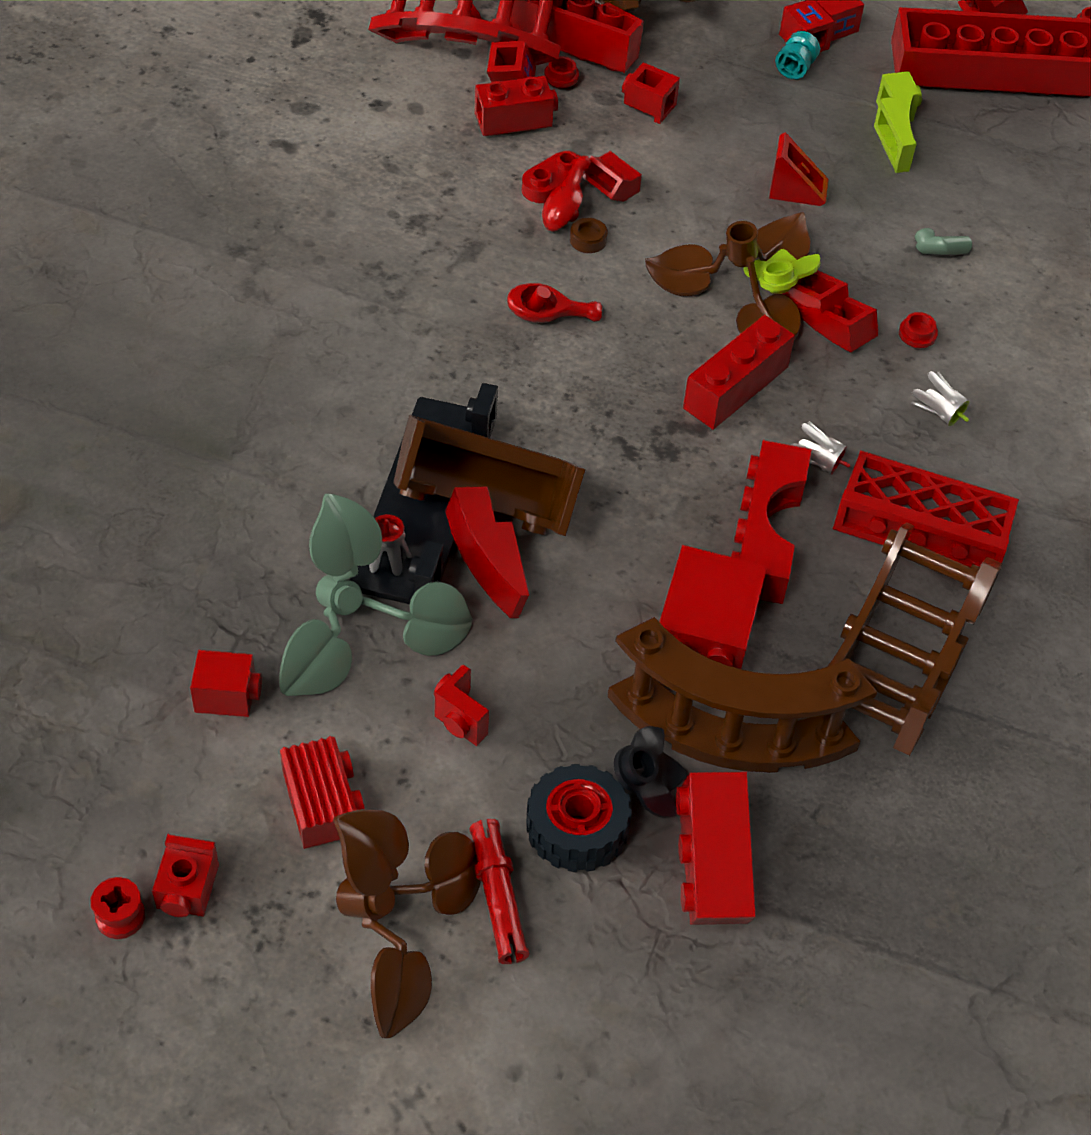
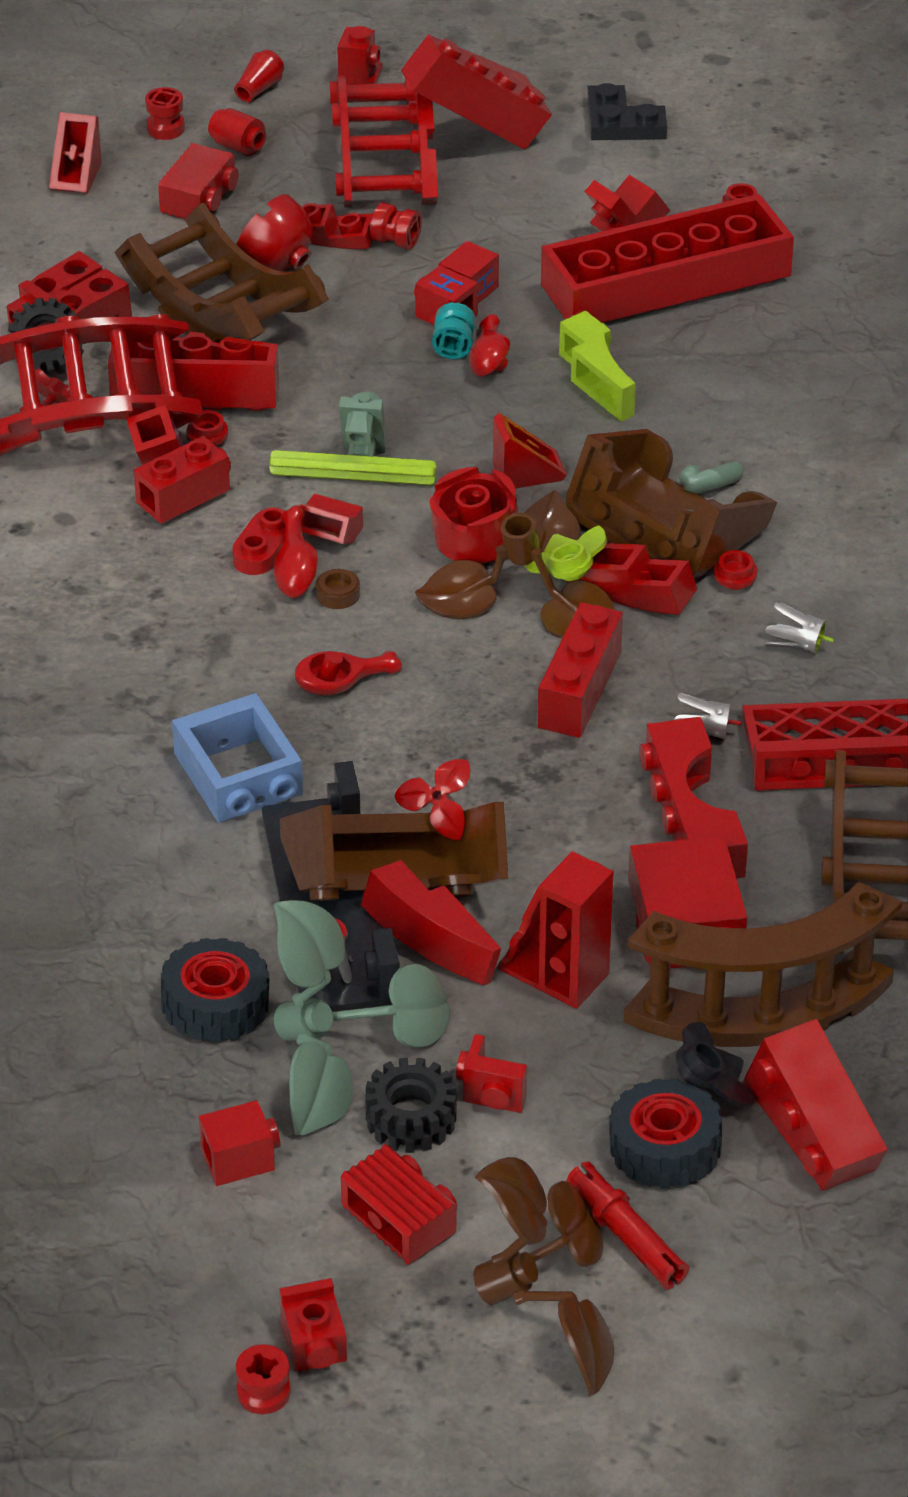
camera: 20 degrees left, 10 degrees down
(277, 540) = (215, 989): none -> black wheel
(383, 726) = (411, 1083): none -> black tyre
(423, 321) = (226, 728): none -> medium blue window
(554, 445) = (446, 813): none -> red plant
(586, 602) = (565, 932): none -> red wedge
(651, 91) = (316, 418): red brick -> none
(657, 140) = (353, 467): none -> lime axle
(677, 109) = (363, 424): none -> sand green hips
(719, 201) = (470, 512): none -> red brick
(818, 78) = (489, 349): none -> red piece
(867, 245) = (628, 493): none -> reddish brown windscreen

